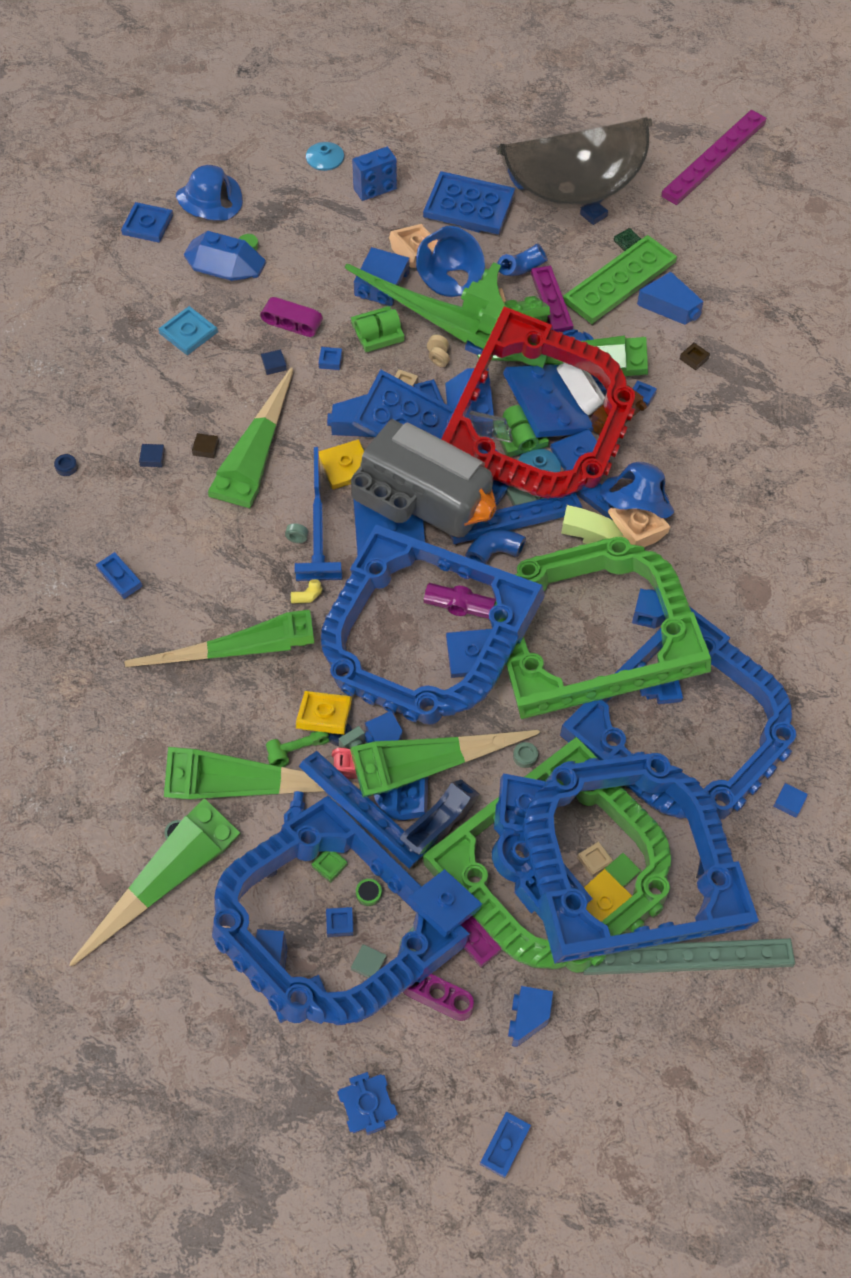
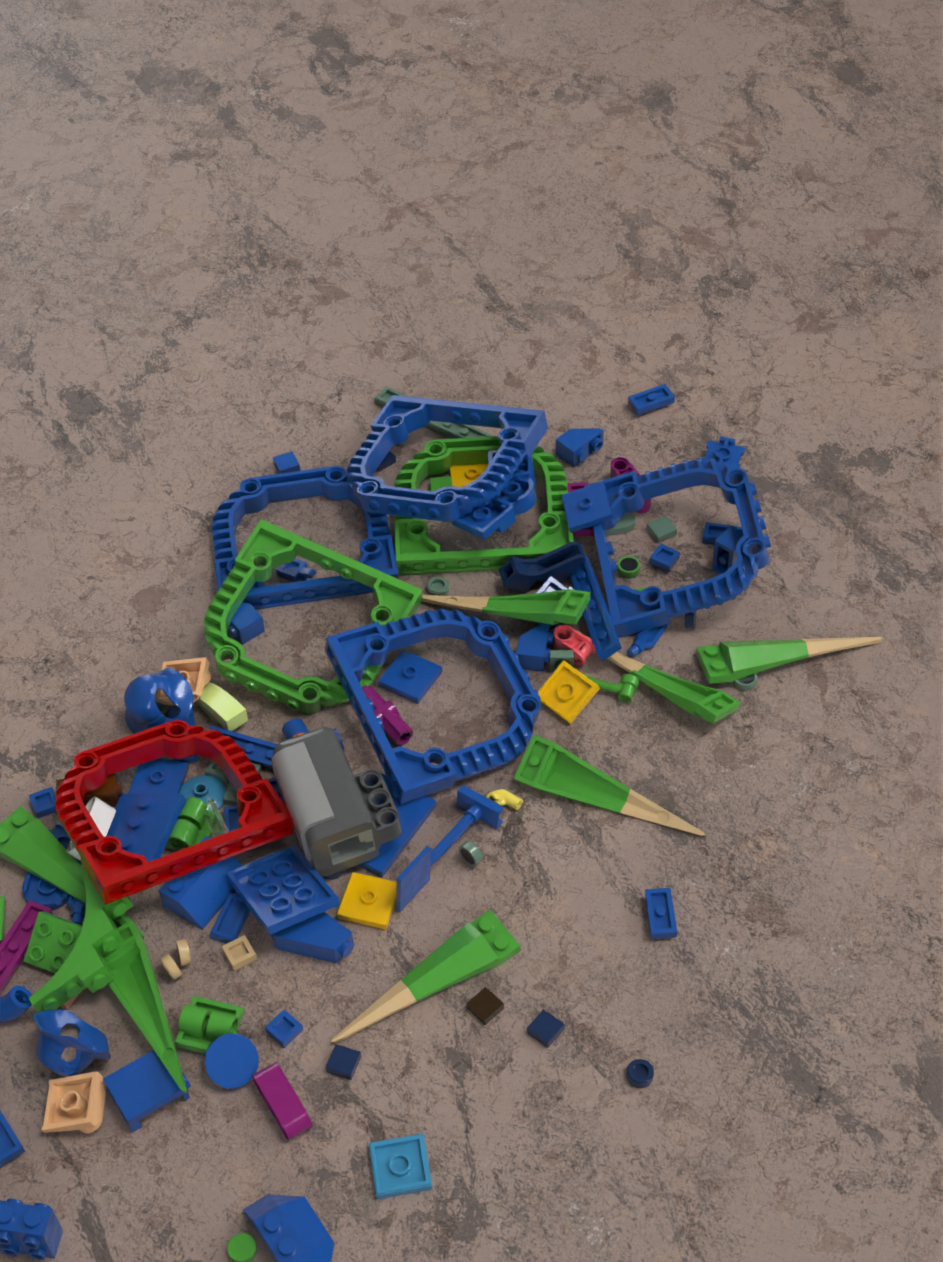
camera: 140 degrees left, 10 degrees down
(342, 314) = (231, 1060): none -> blue tile

